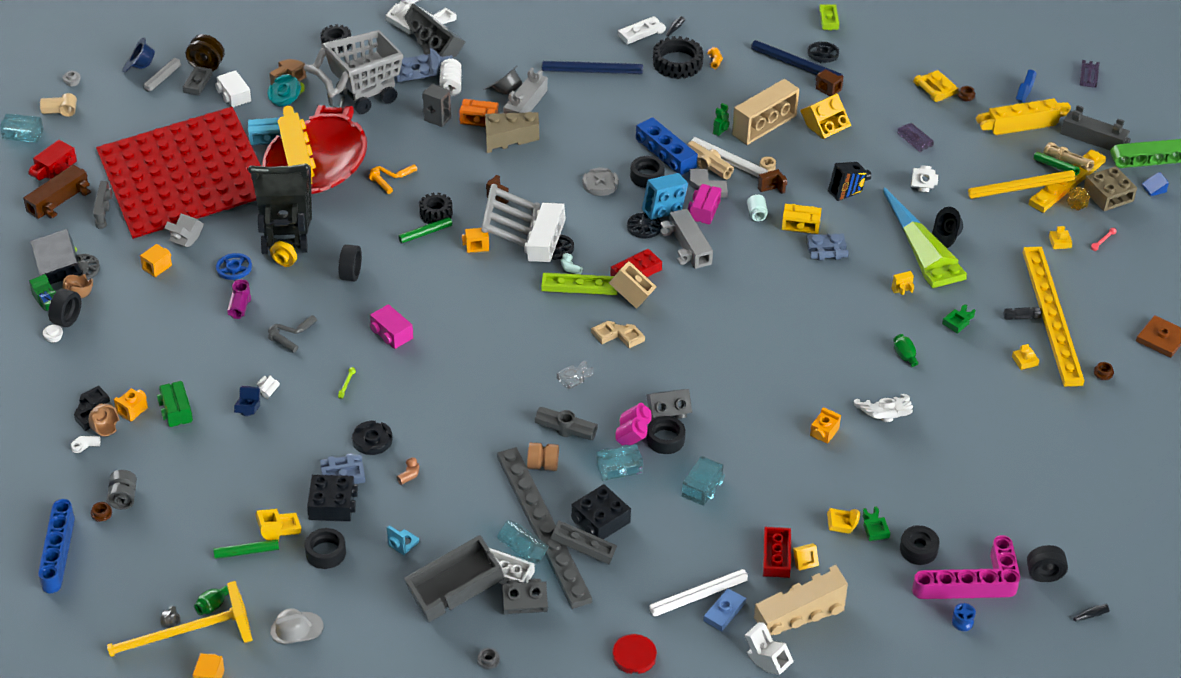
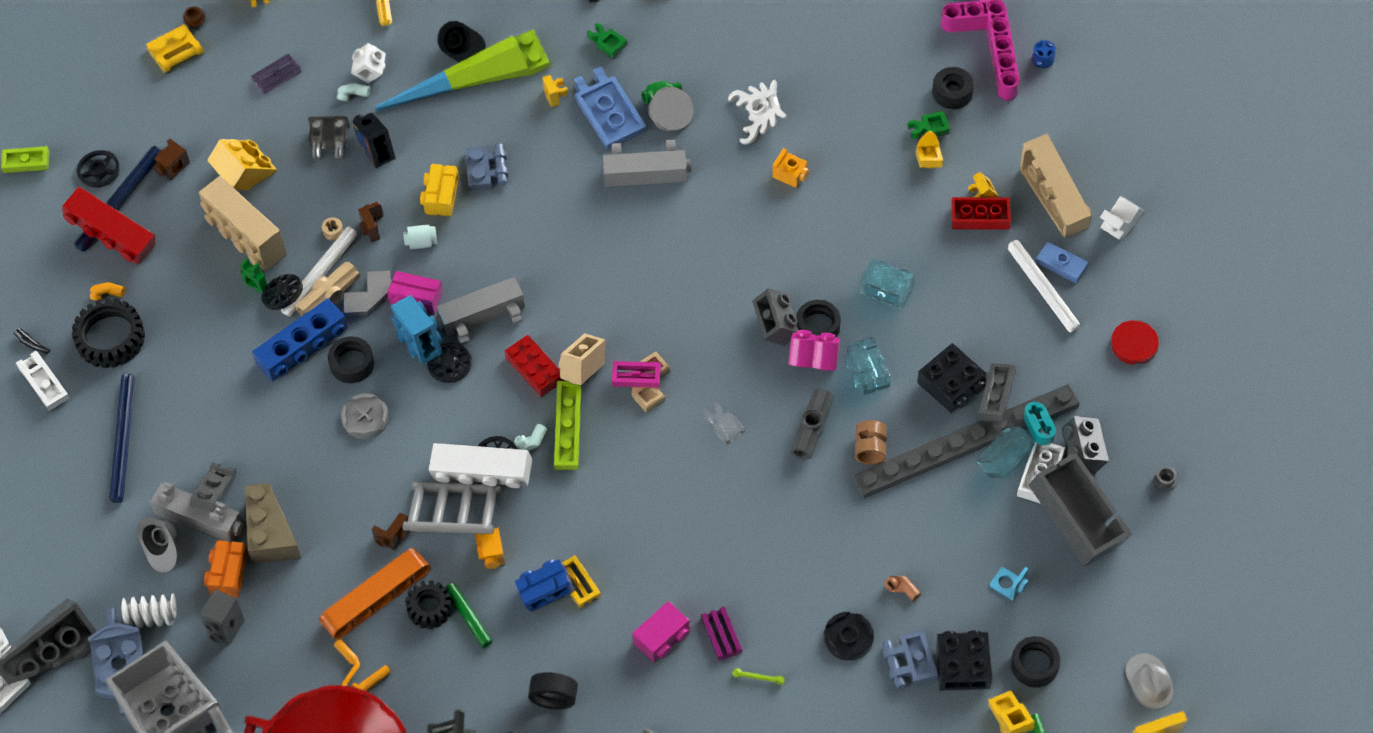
camera: 90 degrees left, 15 degrees up
(397, 359) = (714, 615): none -> magenta tile
(439, 263) = (544, 585): none -> blue brick
(449, 182) = (374, 593): none -> orange beam
(455, 286) = (587, 598): none -> yellow tile
(542, 102) = (212, 487): none -> dark grey plate
(546, 564) = (1044, 421): none -> teal beam
(620, 331) = (636, 378): none -> dark pink tile
(709, 137) = (282, 291): none -> black wheel
(765, 50) = (108, 225): none -> red brick
(824, 335) = (645, 167): none -> light grey brick
(855, 154) = (328, 133): none -> clear smoke piece
(885, 352) = (671, 109): none -> light grey tile
(887, 317) = (608, 109): none -> medium blue tile
(901, 175) = (353, 88): none -> light aqua arm

